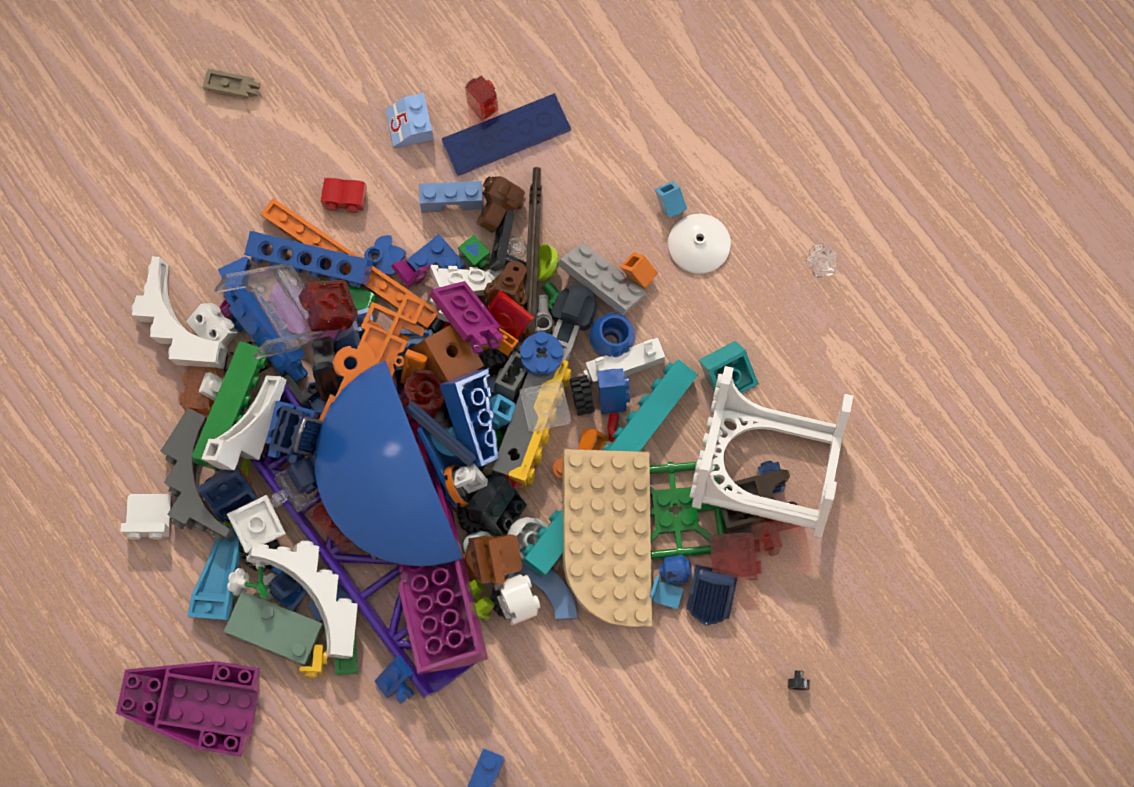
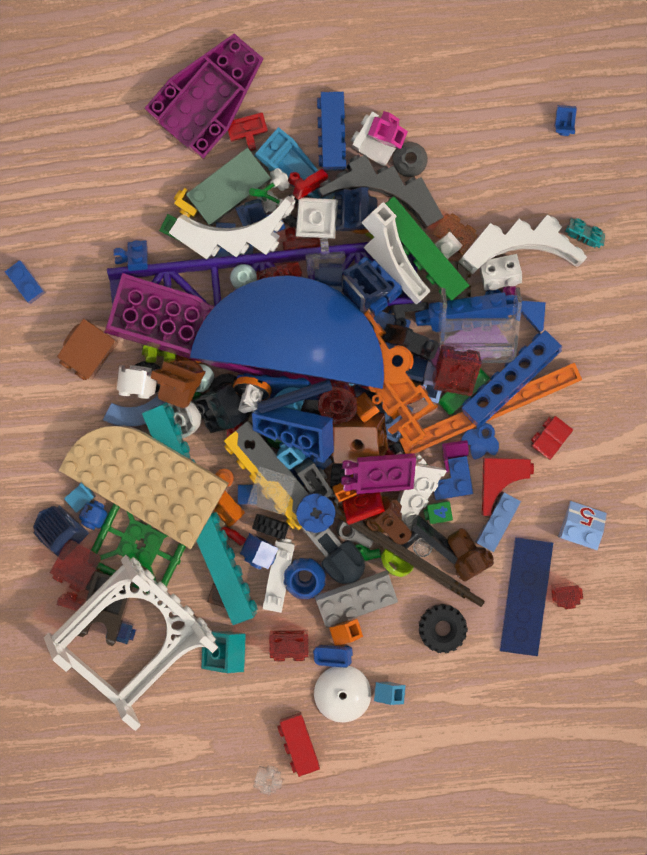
camera: 120 degrees right, 15 degrees up
(31, 353) = (565, 120): none -> blue bracket
(131, 268) = (594, 235): none -> teal hinge
(133, 506) = (387, 130): none -> dark pink brick
(154, 484) = (405, 168): none -> dark grey piece
(163, 561) = (333, 131): none -> blue wedge
(205, 646) = (247, 128): none -> red plate
(232, 554) = (306, 186): none -> red piece
(291, 526) = (292, 243): none -> clear red piece
(355, 560) = (242, 275): none -> light aqua brick
(407, 220) = (499, 474): none -> red arch
(516, 670) = (86, 349): none -> dark orange brick
(565, 437) = (244, 493): none -> blue slope
(581, 174) = (457, 628): none -> black tyre
(669, 269) = (333, 656): none -> blue piece
(681, 409) = (214, 597): none -> reddish brown tile
(683, 312) = (288, 645): none -> clear red piece
(771, 252) = (298, 744): none -> red brick

